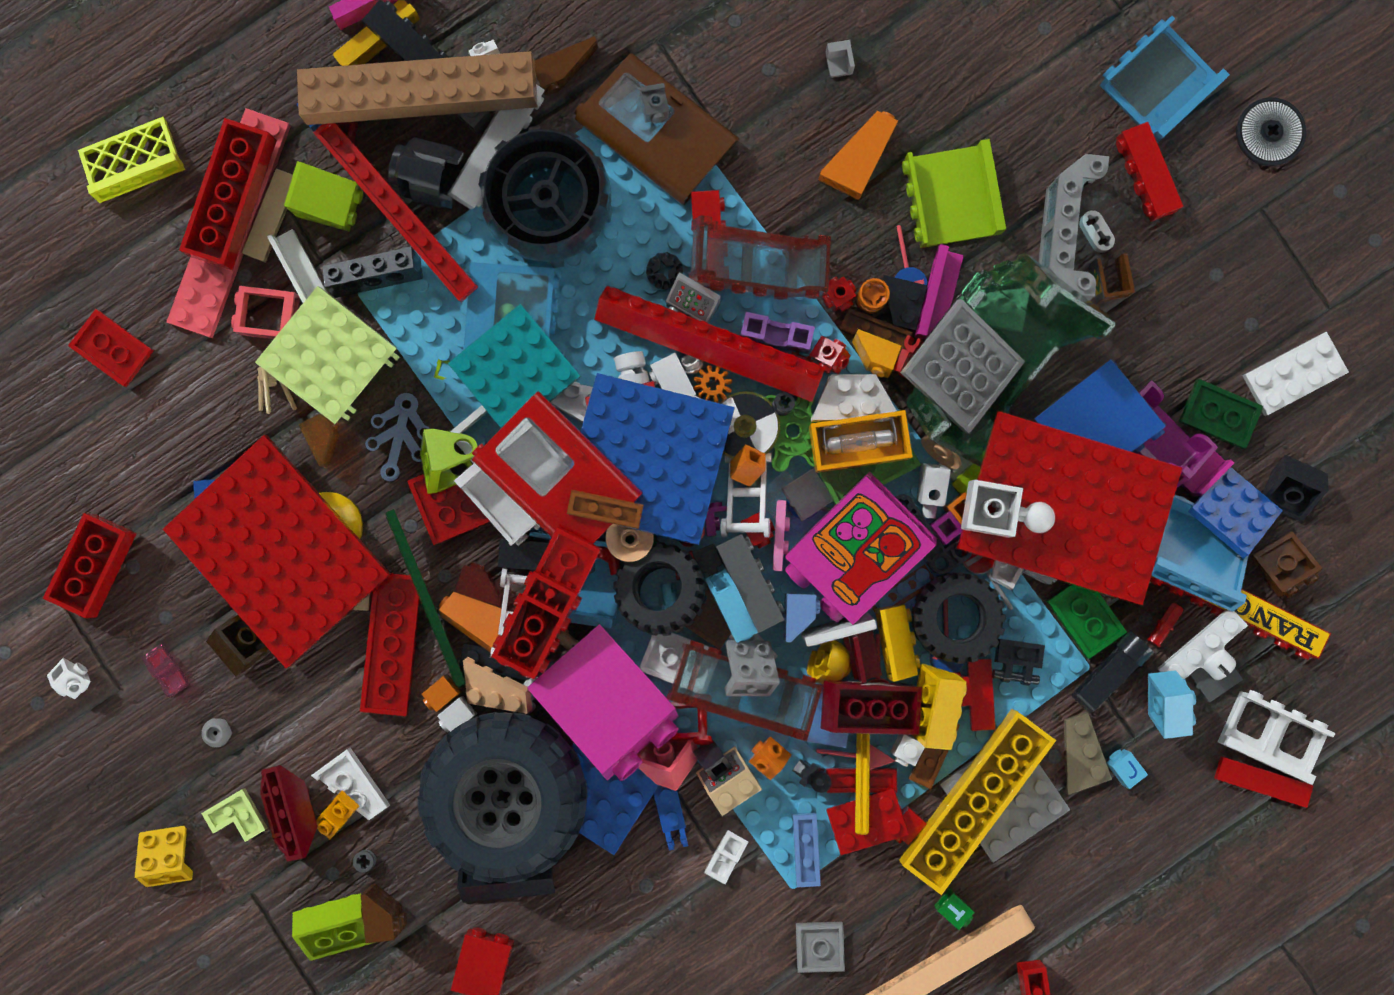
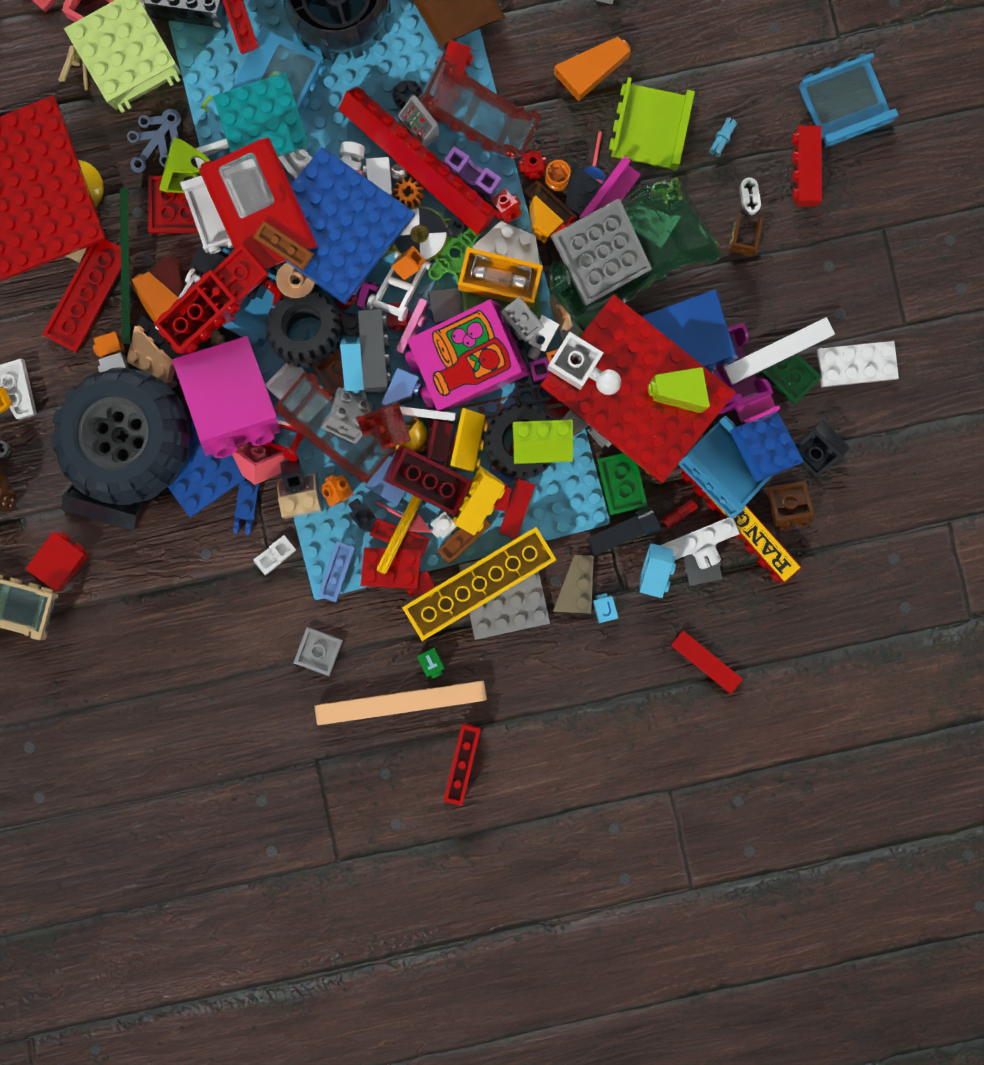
camera: 15 degrees right, 0 degrees up
(321, 437) = (96, 117): clear orange slope -> none
(805, 665) = (387, 424): none -> clear red brick
(907, 482) = (521, 319): none -> light grey bracket
(988, 612) = (543, 441): none -> lime slope
(1018, 653) = (557, 488): black plate -> none
(1039, 176) = (723, 137): none -> medium azure pin
(1062, 220) = (741, 146): light grey windscreen -> none
(1127, 491) = (681, 389): none -> lime slope
(1205, 395) = (778, 351): none -> white tile
(1254, 127) = (909, 186): piece -> none
(1267, 748) = (719, 638): white window -> none

